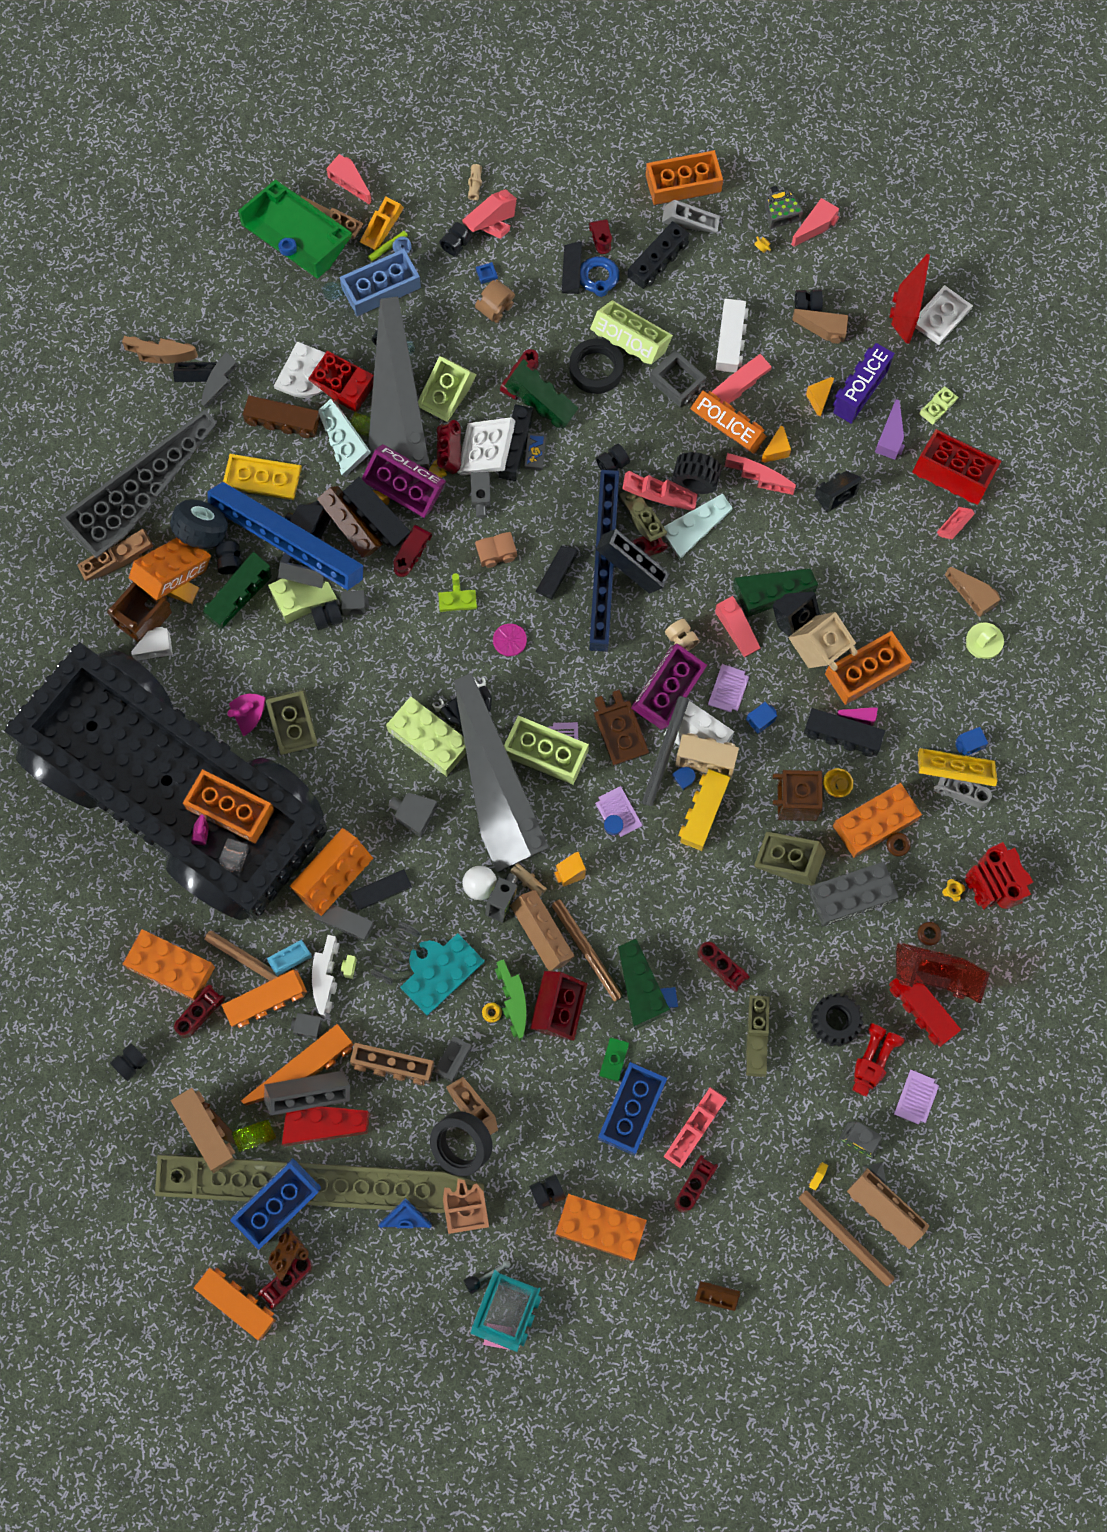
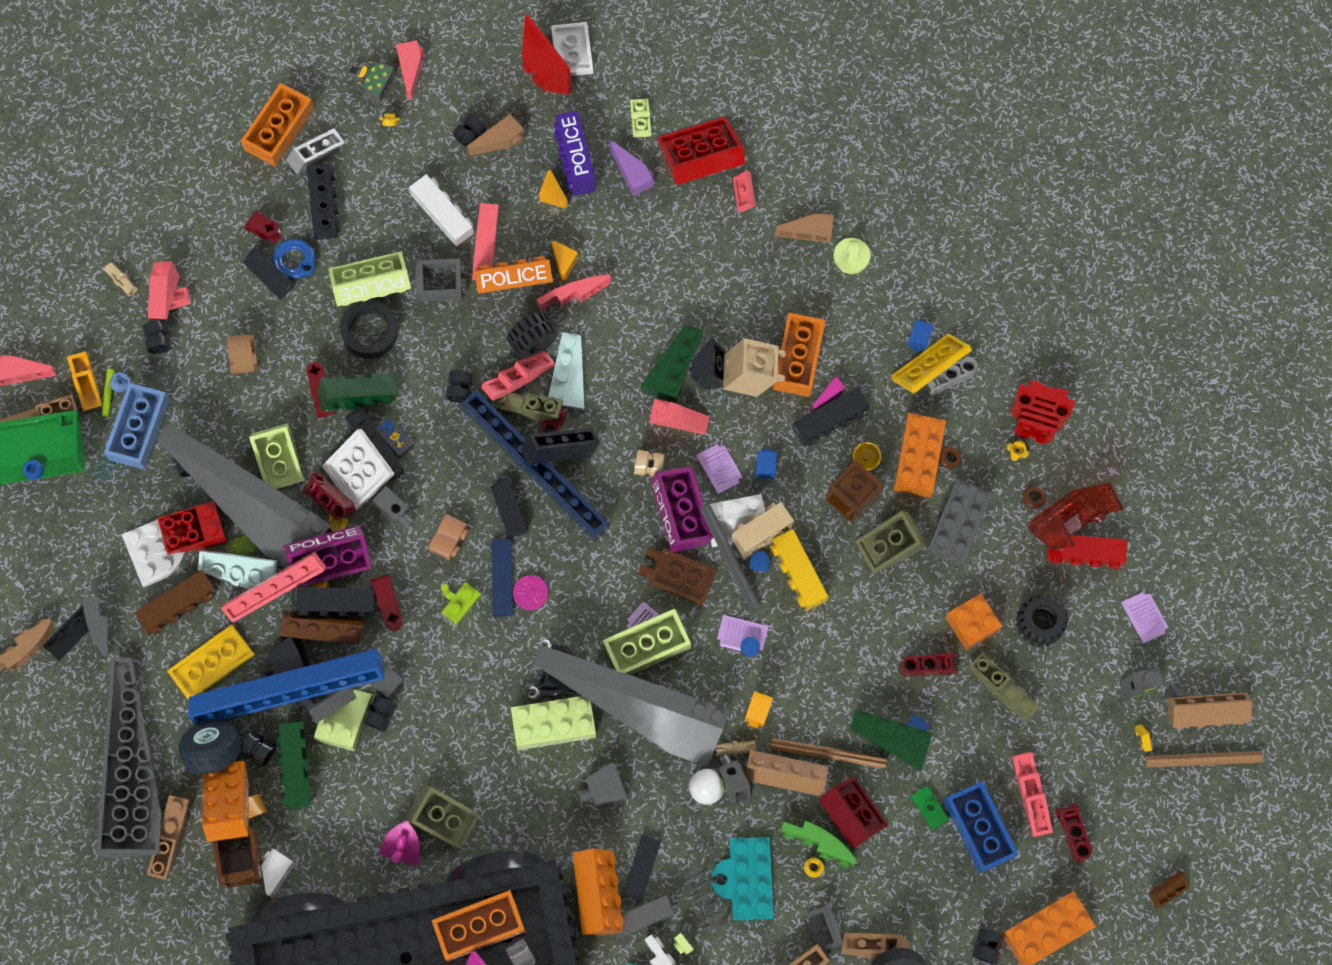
camera: 50 degrees left, 0 degrees up
(347, 464) = (273, 587): none -> coral plate
(486, 273) = (207, 339): blue tile -> none
(502, 611) = (501, 578): none -> dark blue tile
(786, 969) = (973, 621): none -> orange brick
(837, 490) = (640, 248): black slope -> none
(868, 1073) = (1097, 634): red piece -> none

